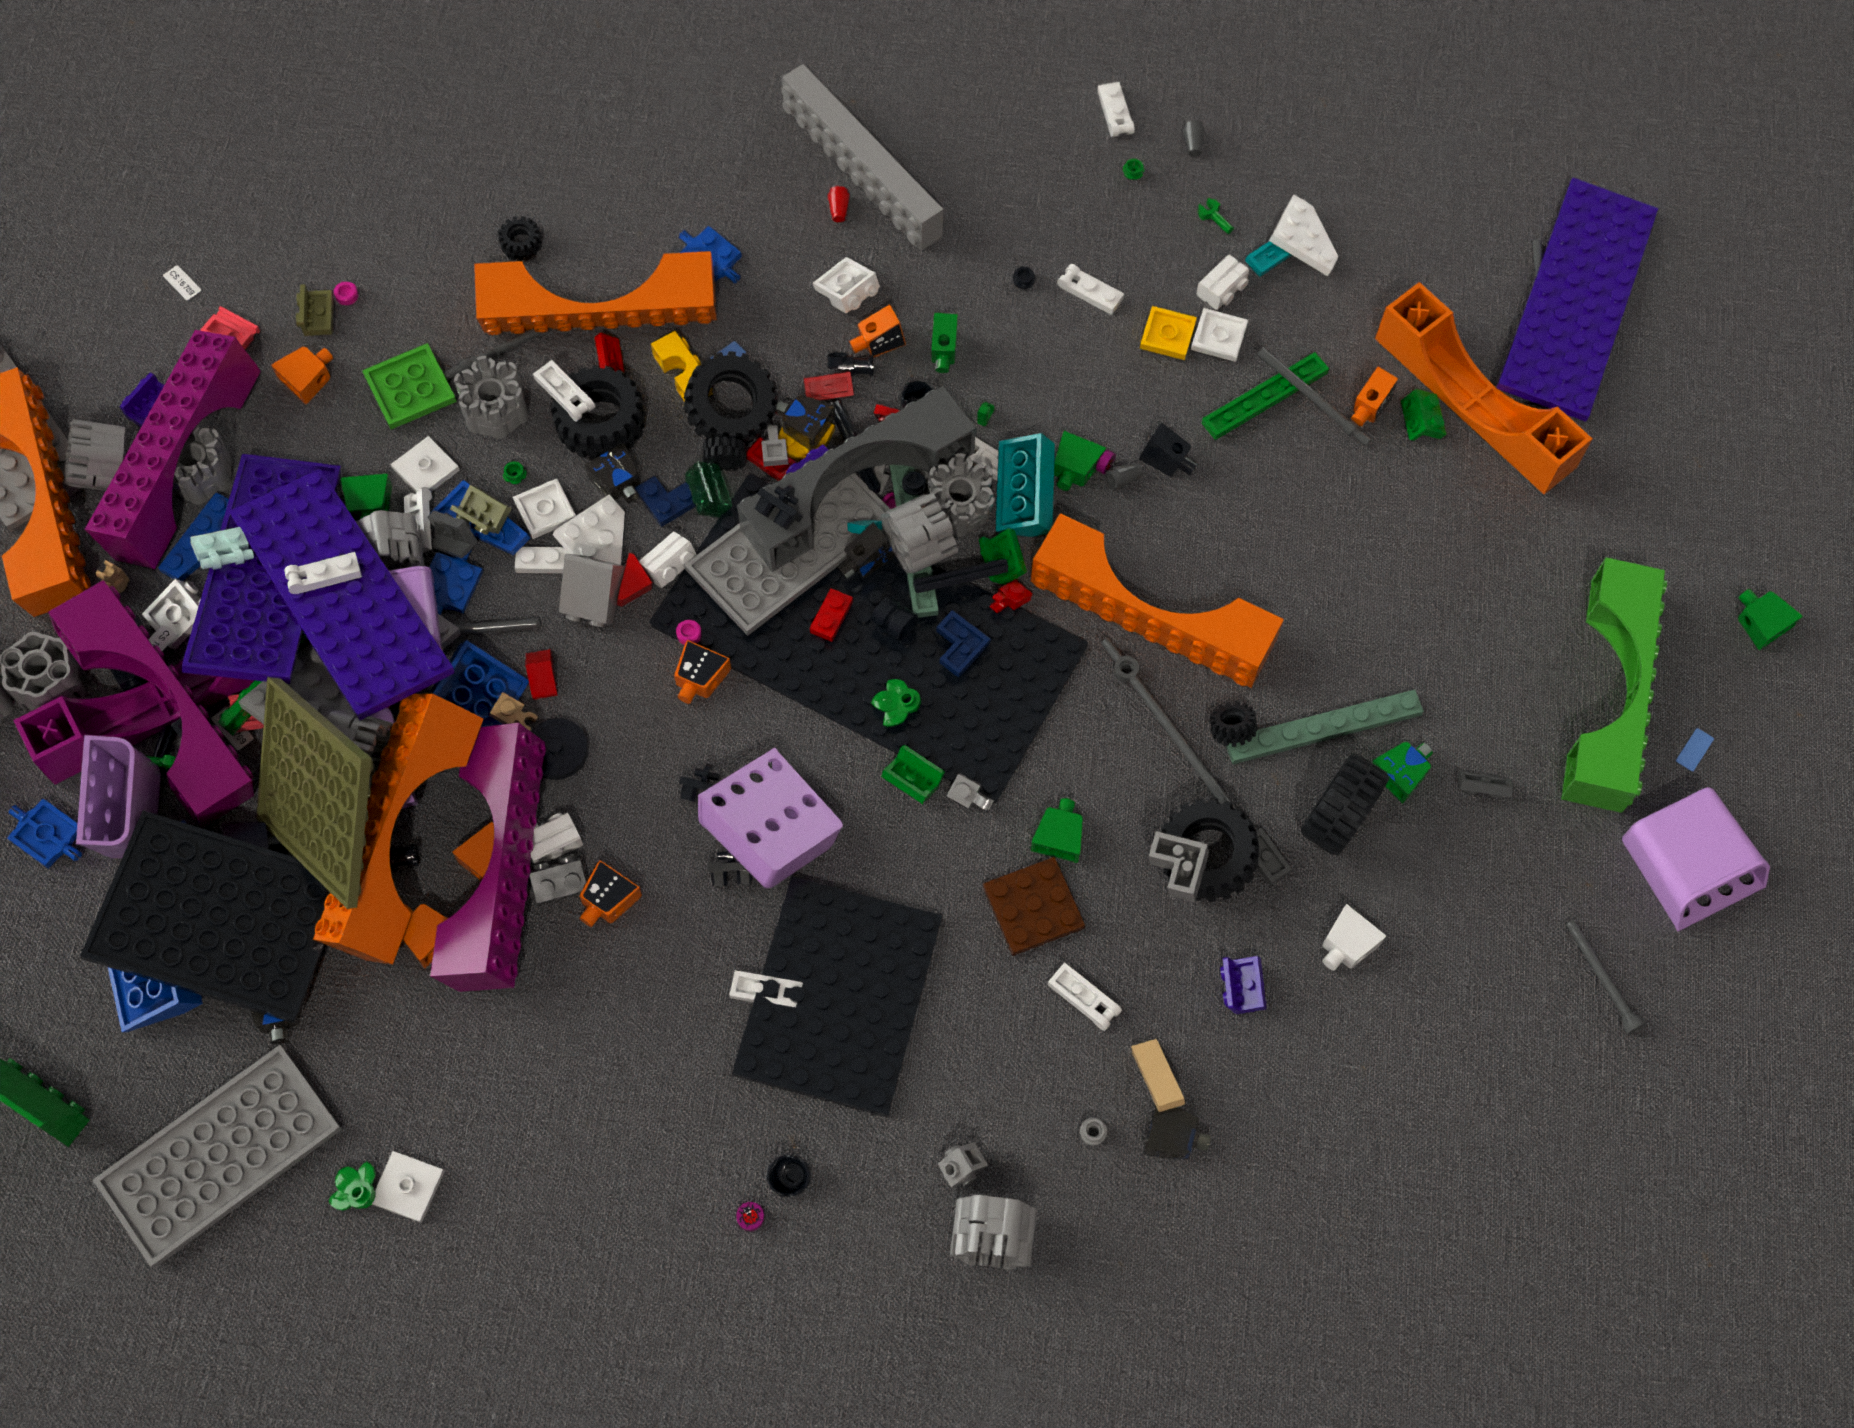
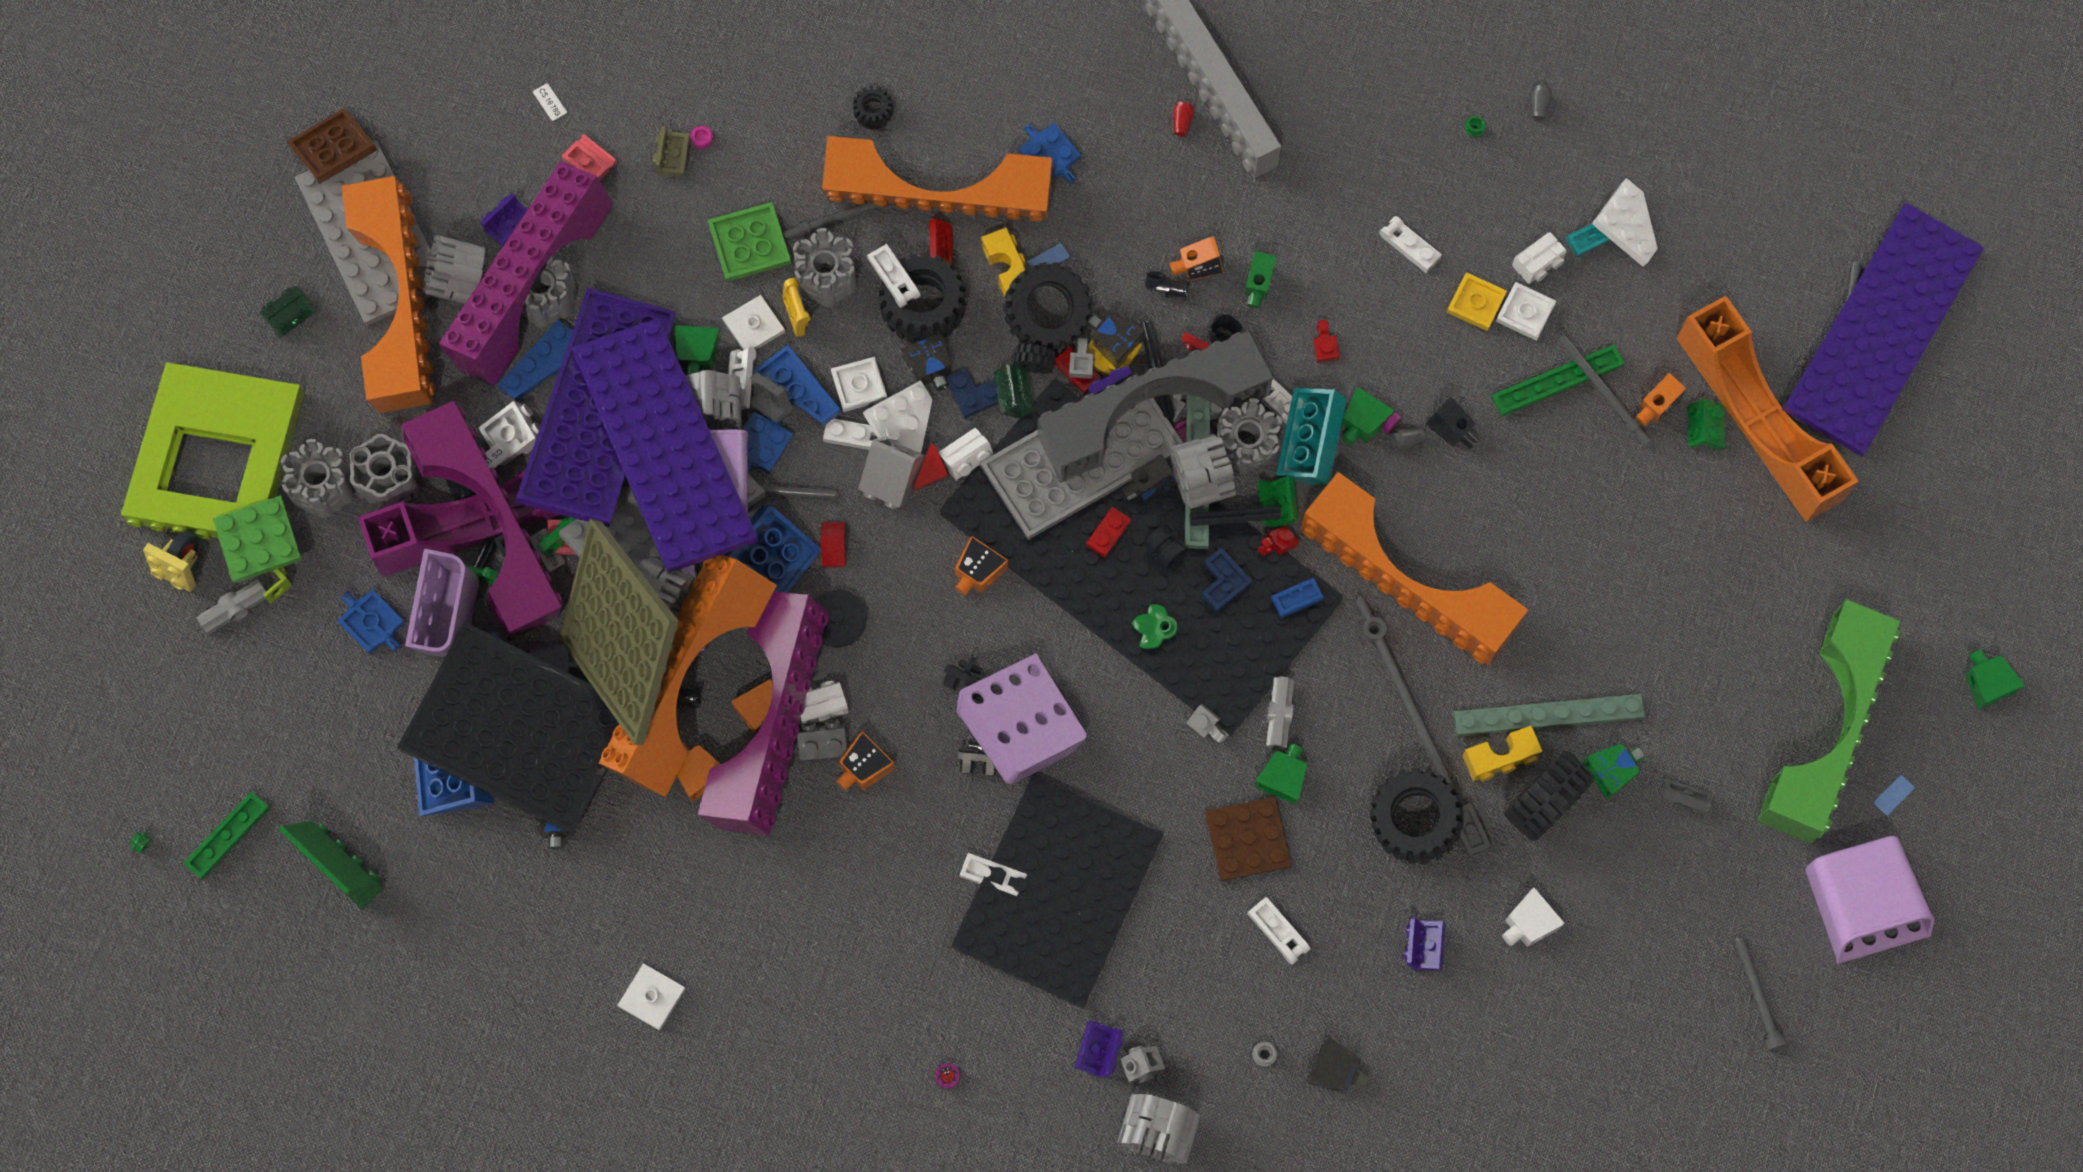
camera: 10 degrees right, 5 degrees up
(113, 576) = (456, 390): tan plate -> none
(216, 1156) = (490, 940): light grey plate -> none
(221, 548) = (561, 379): light aqua plate -> none
(304, 372) = (653, 212): orange torso -> none
(322, 573) = (651, 426): white plate -> none
(354, 1188) = (603, 987): green plate -> none
(465, 440) = (794, 306): none -> yellow plate
(482, 510) = (801, 380): olive bracket -> none
(508, 711) = (799, 576): tan plate -> none
(514, 467) = (831, 340): green plate -> none
(688, 630) = (975, 527): dark pink tile -> none
(769, 502) = (1067, 422): black hips -> none
(789, 1175) = (987, 1046): black hair -> none
(829, 386) = (1142, 305): red plate -> none
(847, 285) = (1177, 204): white plate -> none
(859, 526) = (1151, 452): teal tile -> none
(912, 1158) = (1099, 1050): none -> dark purple bracket
(913, 774) = (1159, 698): green bracket -> none
(914, 483) = (1206, 418): black plate -> none
(985, 413) = (1286, 355): green tile -> none
(1022, 399) = (1325, 346): none -> red plate
(1024, 278) = (1348, 223): black plate -> none
(1040, 648) = (1297, 597): none -> blue plate
(1044, 770) = (1280, 713): none -> light grey piece
(1115, 109) = (1469, 59): white plate -> none
(1157, 1075) = (1331, 1014): tan tile -> none
(1186, 861) = (1392, 827): light grey brick -> none
(1213, 214) = (1545, 186): green bar -> none
(1235, 733) = (1463, 690): black tyre -> none
(1268, 785) = (1484, 763): none -> yellow arch

